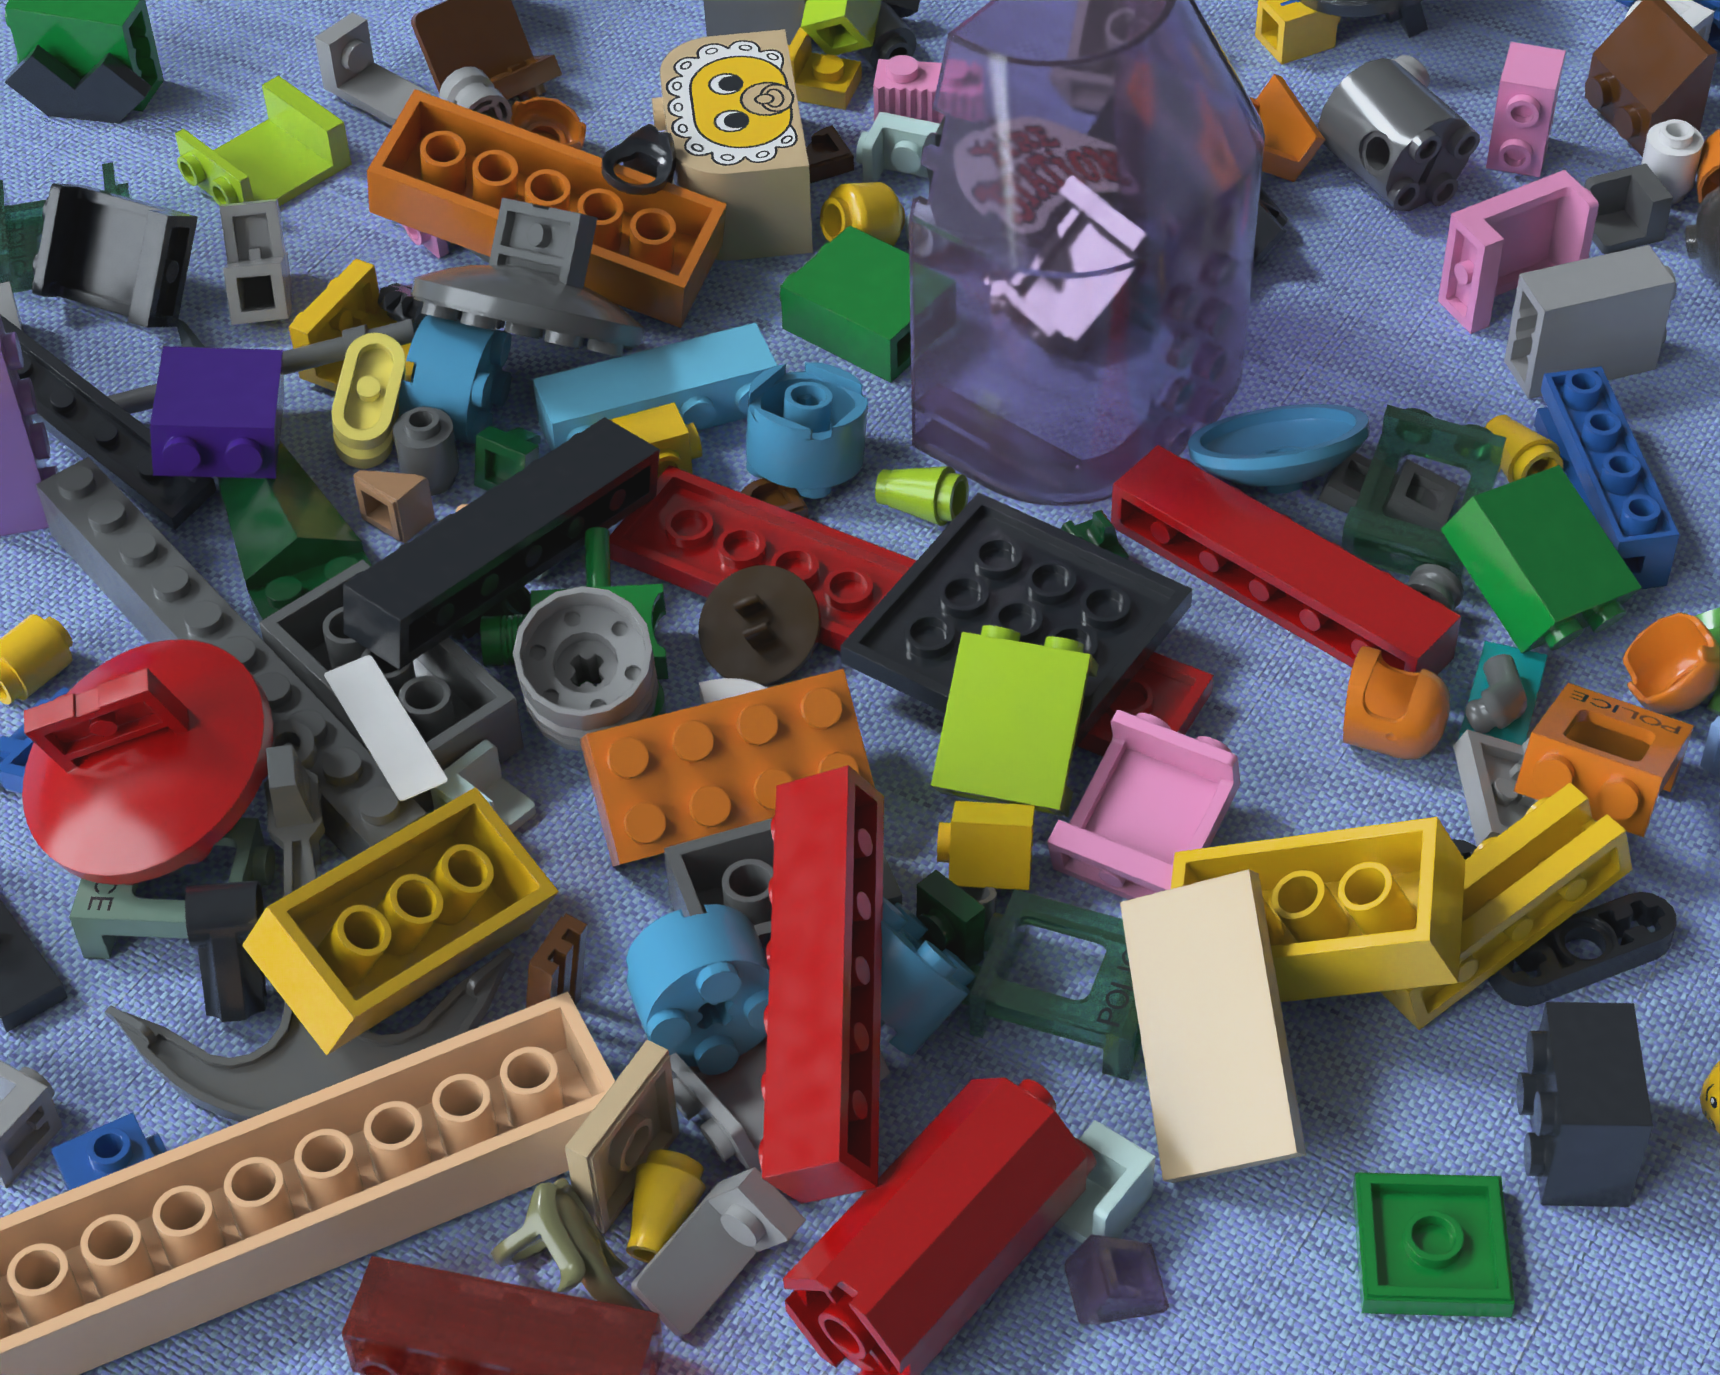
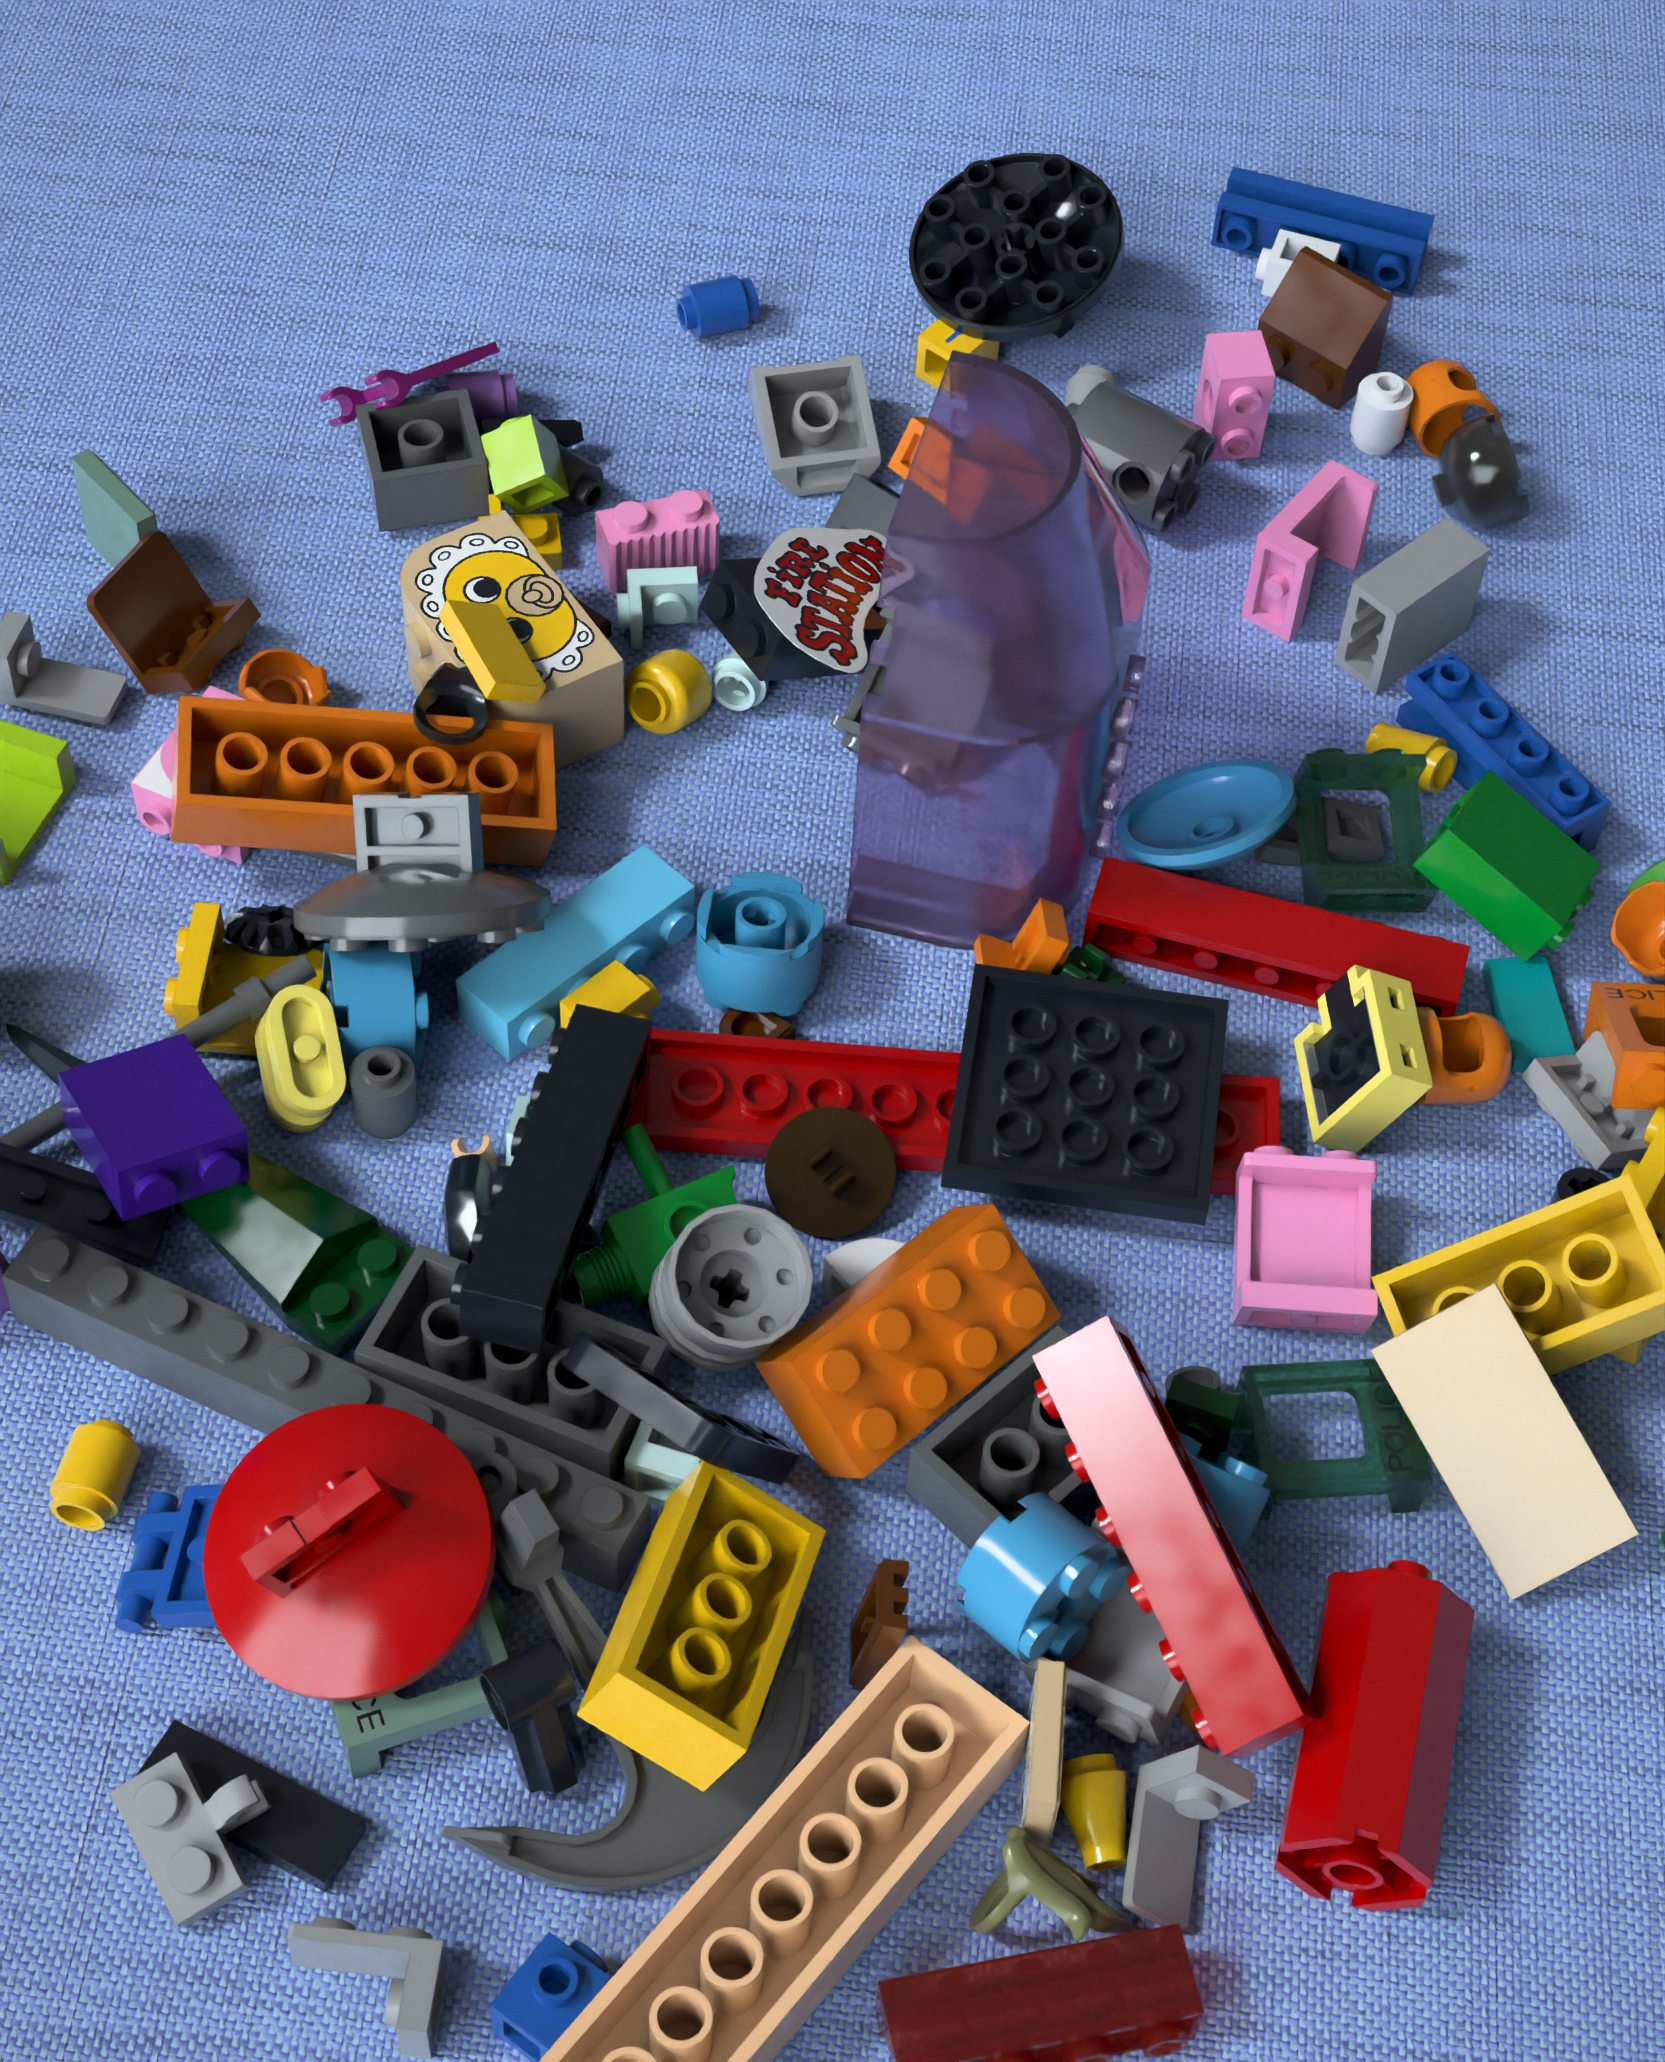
camera: 30 degrees left, 5 degrees up
(256, 262) = (66, 939): light grey brick -> none
(385, 728) = (560, 1421): white sticker -> none
(394, 502) = (378, 1162): medium nougat slope -> none
(475, 91) = (207, 674): light grey wheel -> none
(482, 767) = (700, 1431): none -> black beam
(503, 454) = (473, 1078): dark green tile -> none
(693, 126) = (492, 651): none -> yellow tile
(853, 303) = (726, 784): green brick -> none
(926, 493) = (898, 974): lime cone -> none
(988, 845) = (1185, 1326): yellow brick -> none
(1013, 720) = (1152, 1193): lime panel -> none
(1060, 501) = (1036, 948): none -> orange bracket
(1114, 1188) = (1491, 1626): light aqua panel -> none
(1114, 1280) = (1522, 1714): clear purple slope -> none
(1293, 680) = (1362, 1060): none -> light yellow piece
(1437, 584) = (1418, 917): dark grey bush -> none
(1502, 700) = (1542, 1009): dark grey arm -> none
(1630, 209) = (1376, 458): dark grey panel -> none

